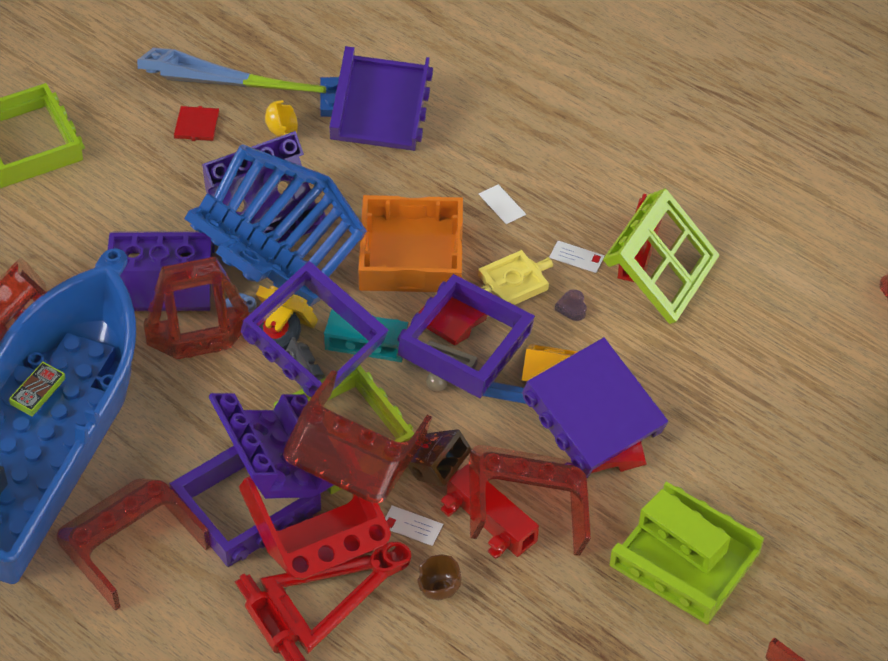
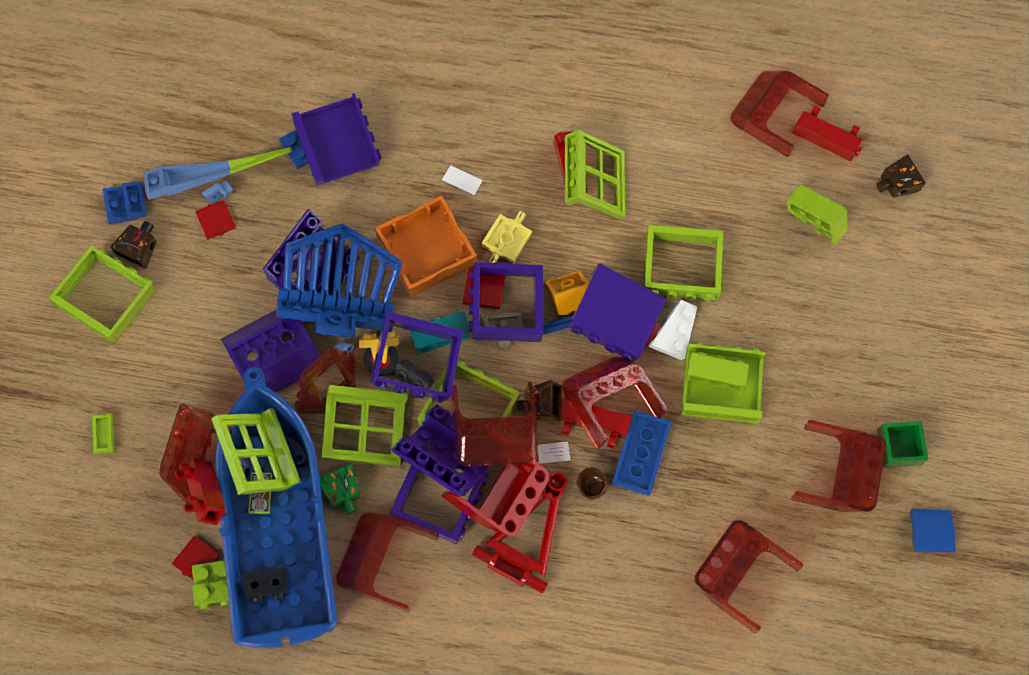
camera: 30 degrees left, 20 degrees up
(85, 350) = (274, 447): none -> lime window
(94, 106) = (136, 244): none -> dark brown torso
(111, 67) = (124, 203): none -> blue slope
(135, 436) = (341, 488): none -> green torso
(219, 96) = (217, 191): none -> medium blue piece
(229, 353) = (366, 398): none -> lime window
(280, 118) = (276, 189): yellow hair -> none
(526, 578) = (641, 453): none -> blue plate
(572, 305) = (554, 238): tile -> none
(576, 256) = (534, 197): white sticker -> none
(660, 463) = (676, 331): none -> white wing
(736, 369) = (690, 235): none -> lime window

